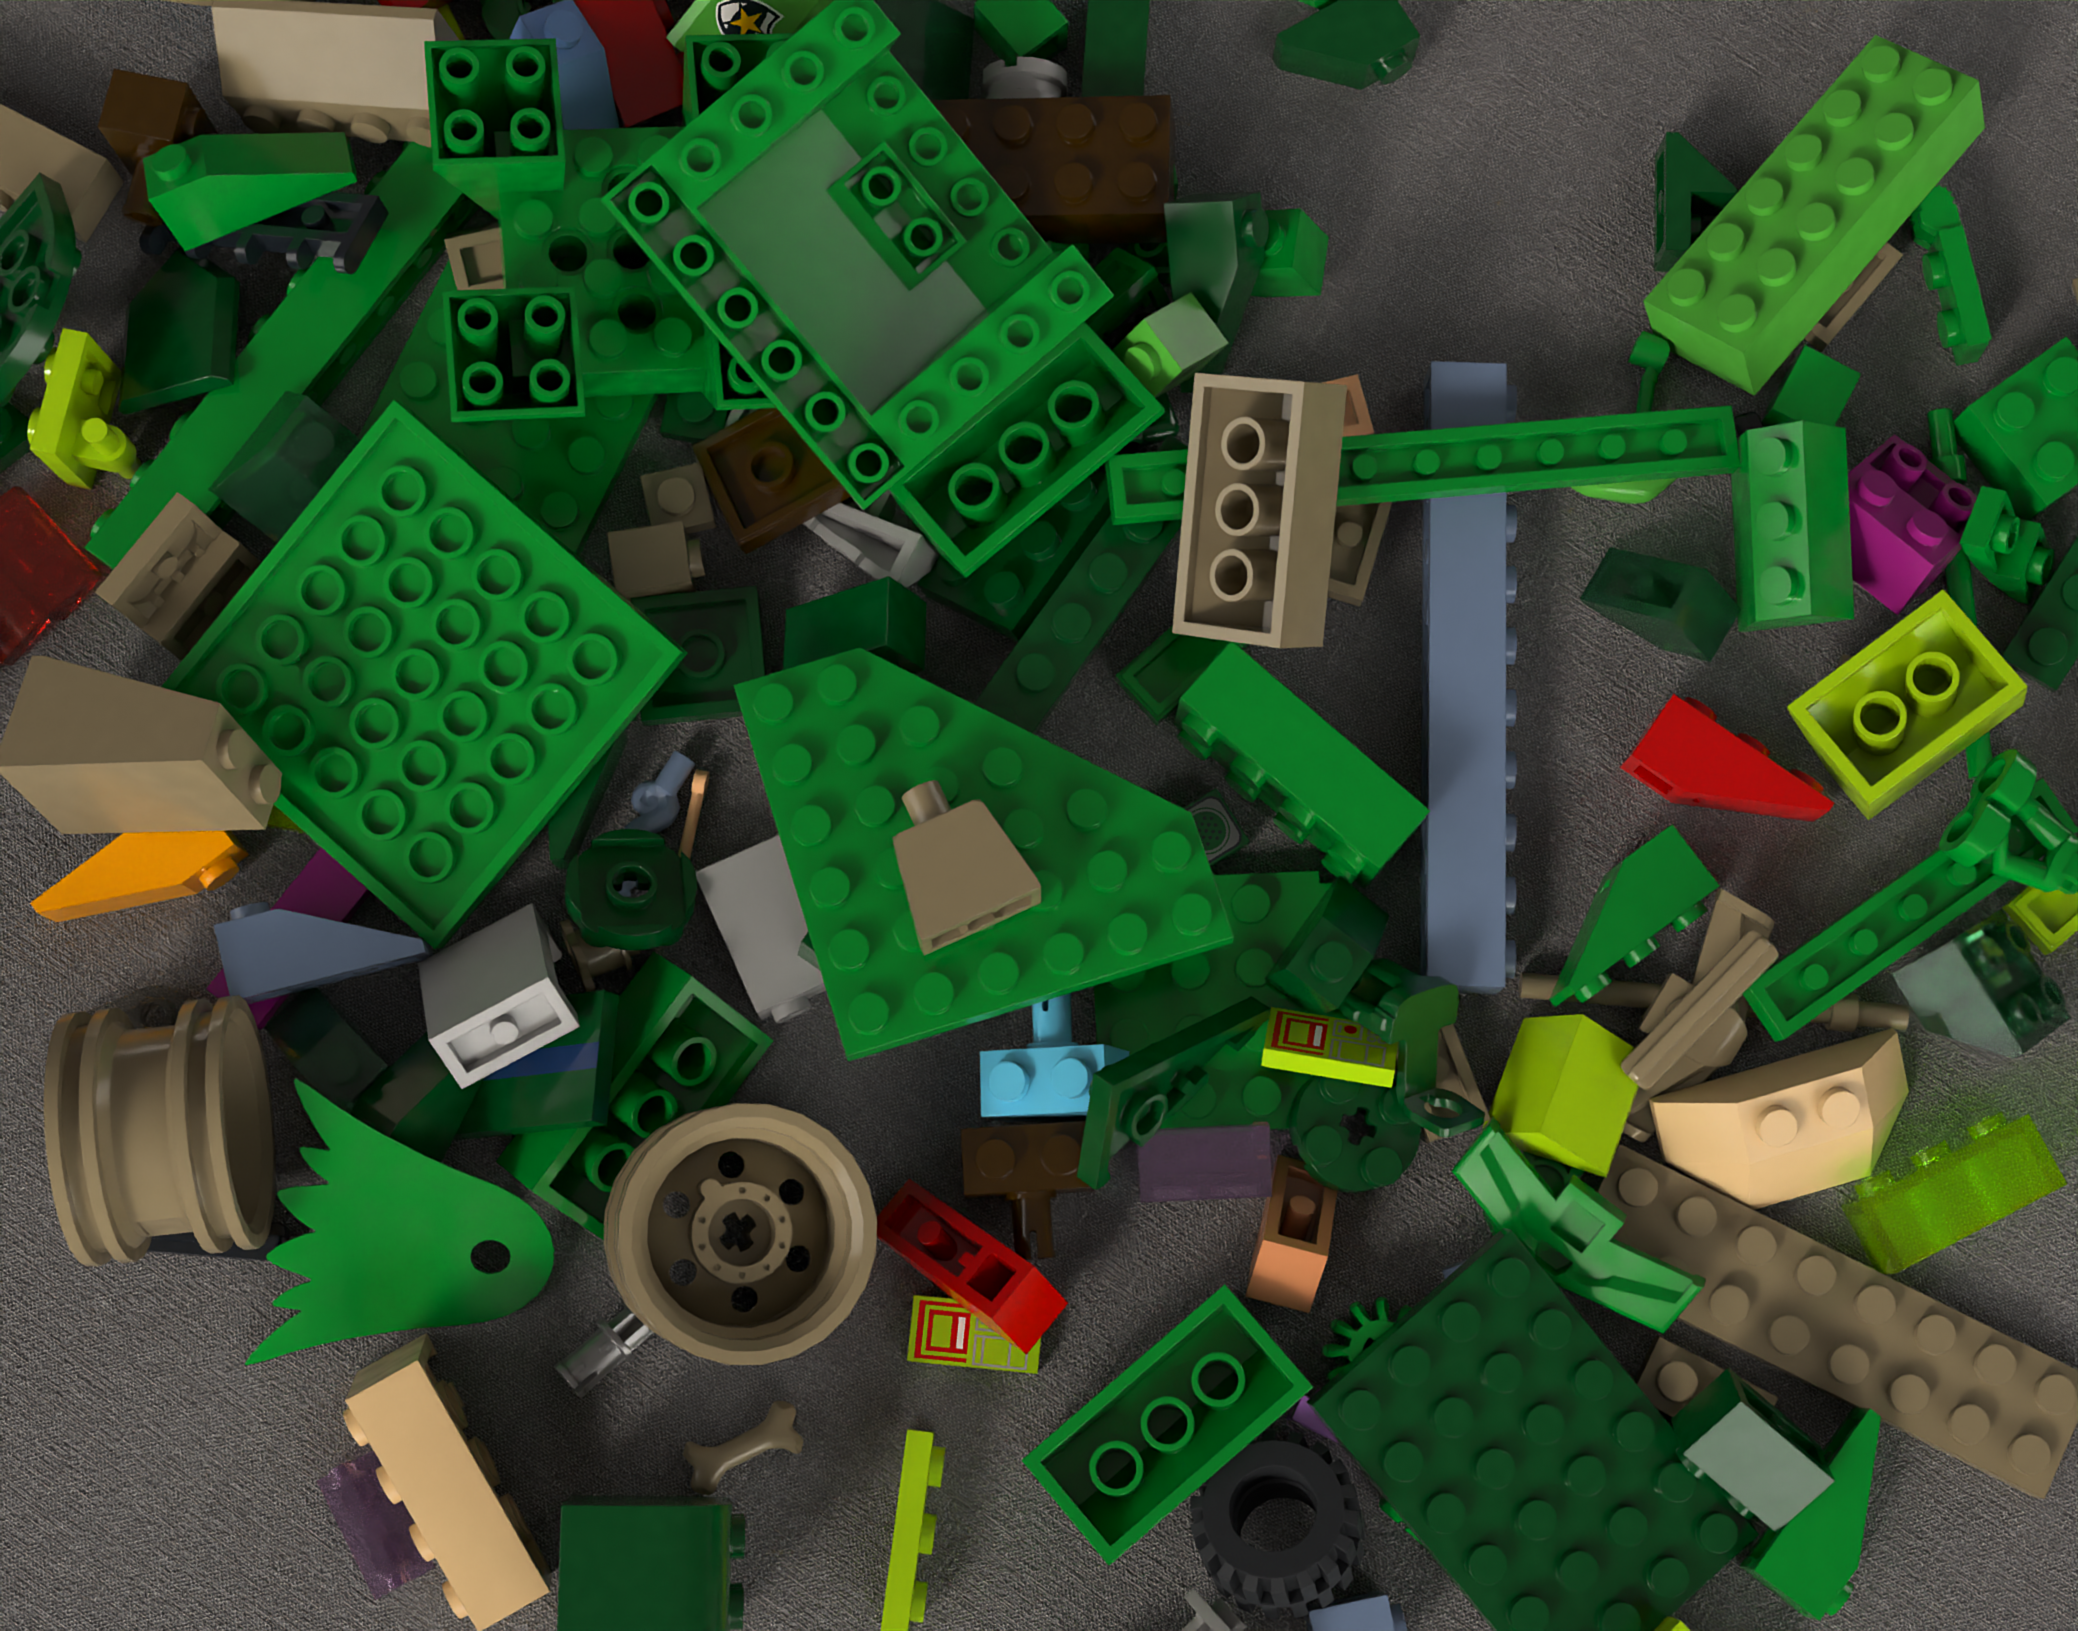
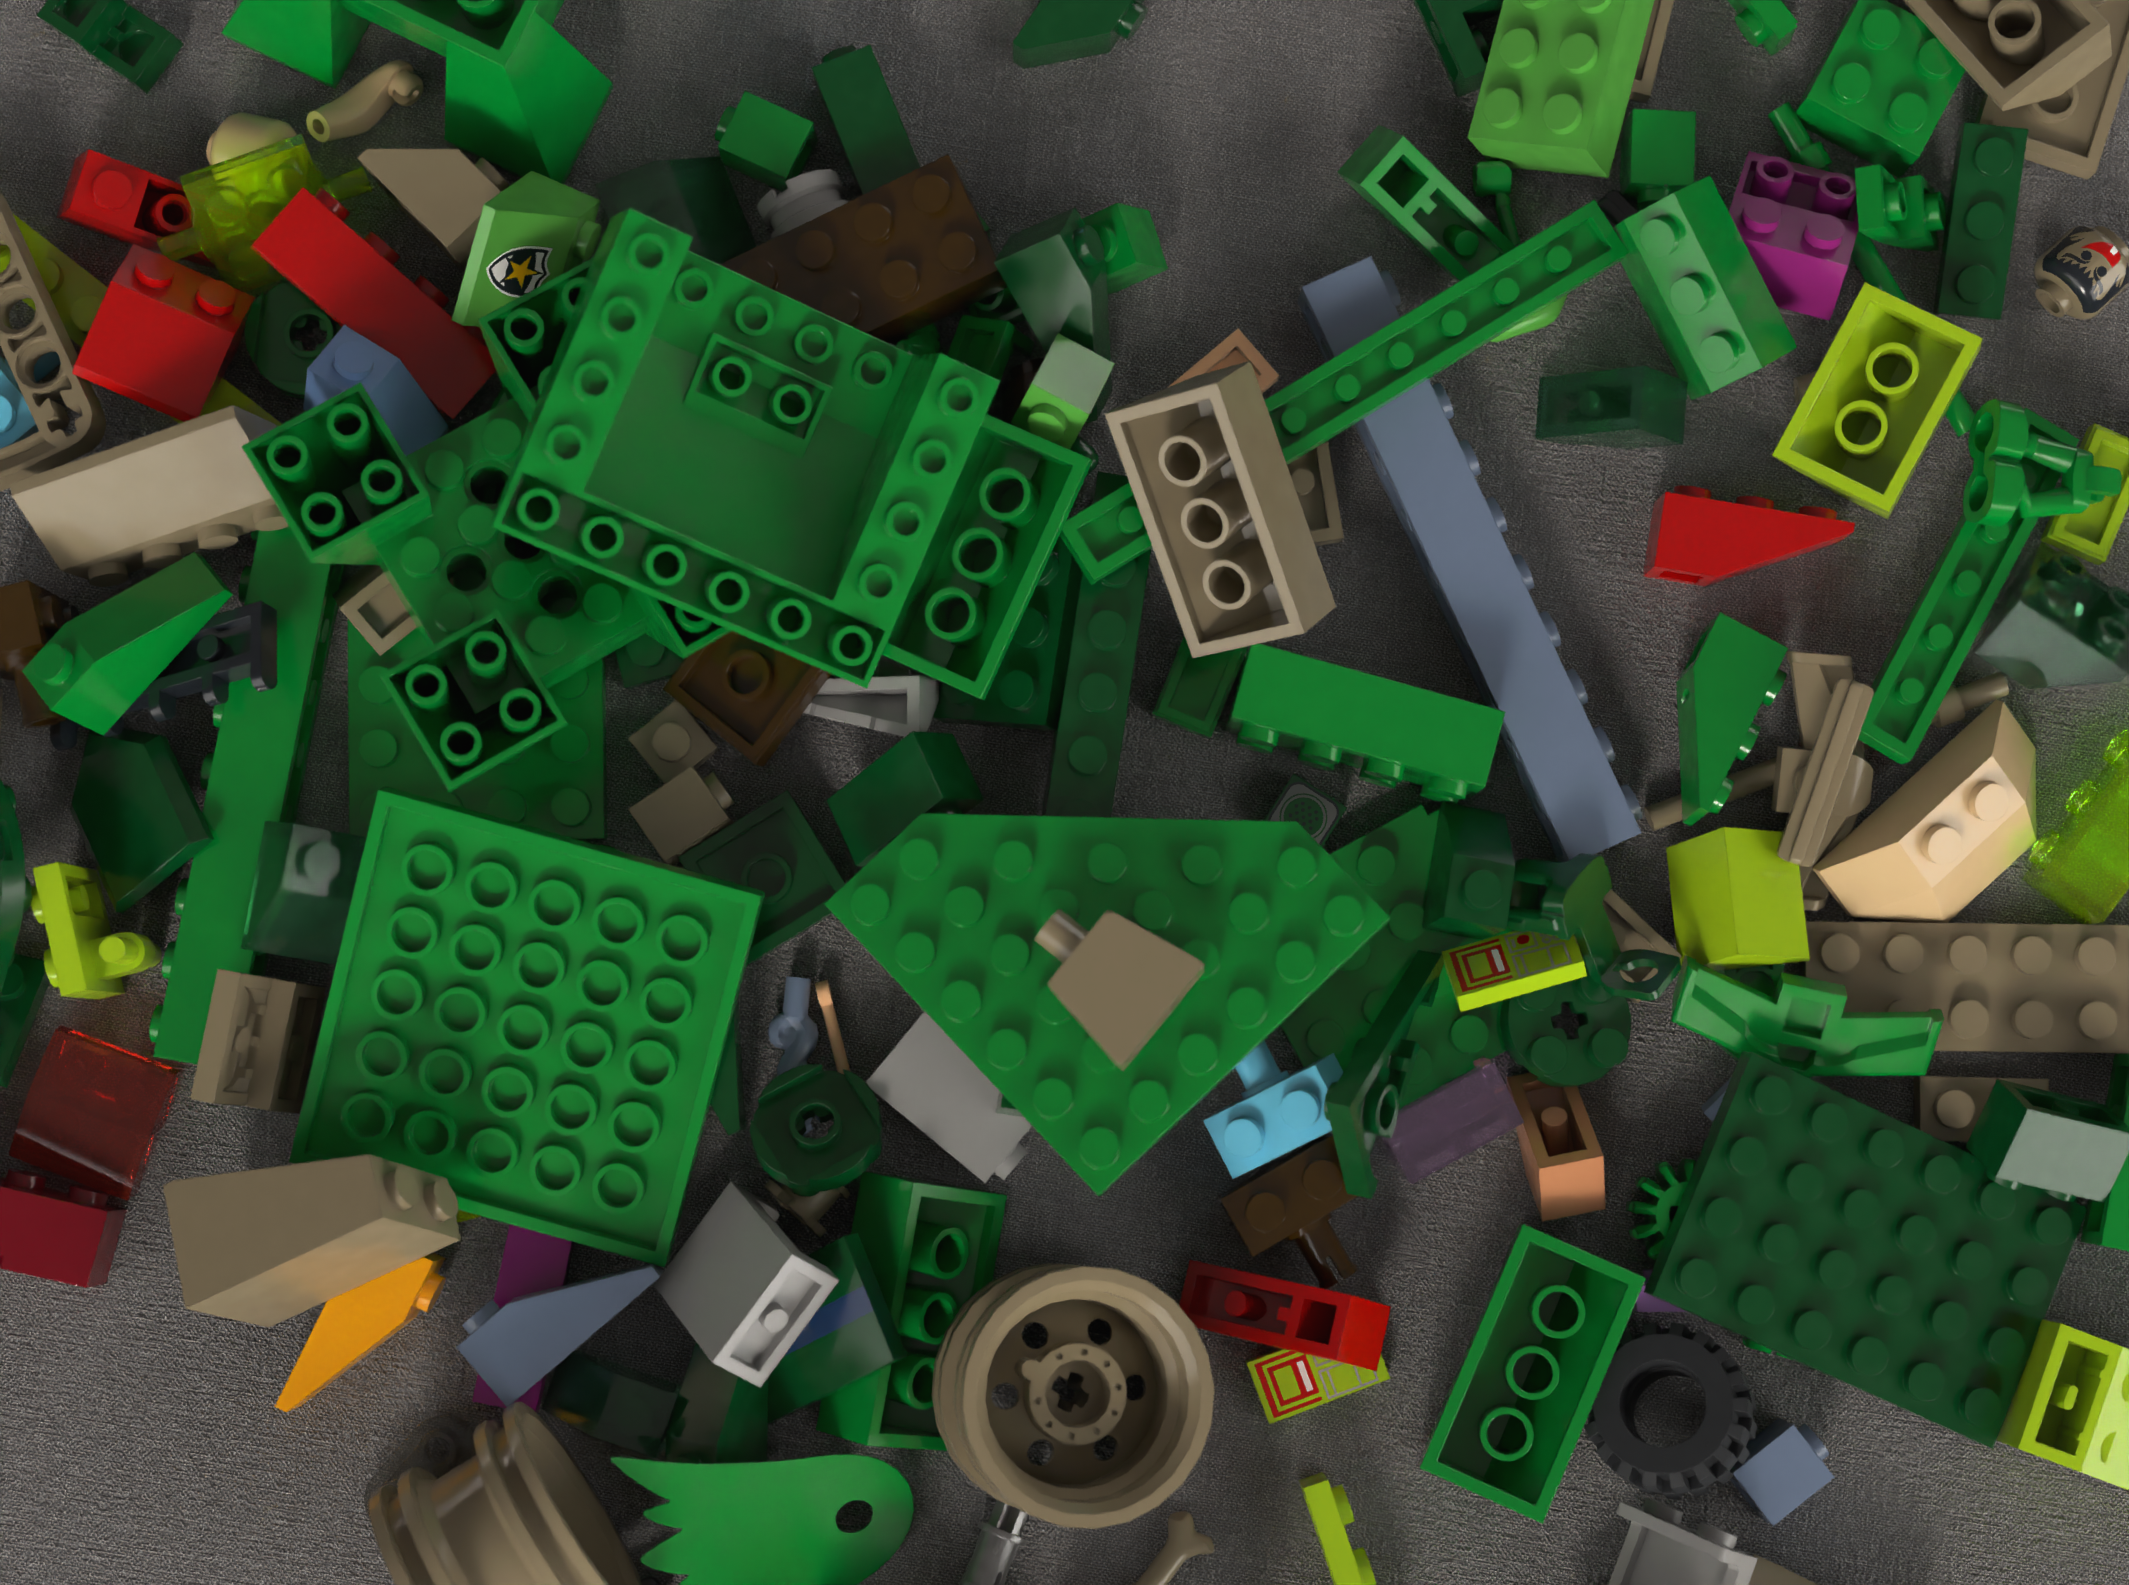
camera: 25 degrees left, 5 degrees up
(1575, 340) = (1423, 204): none -> green slope

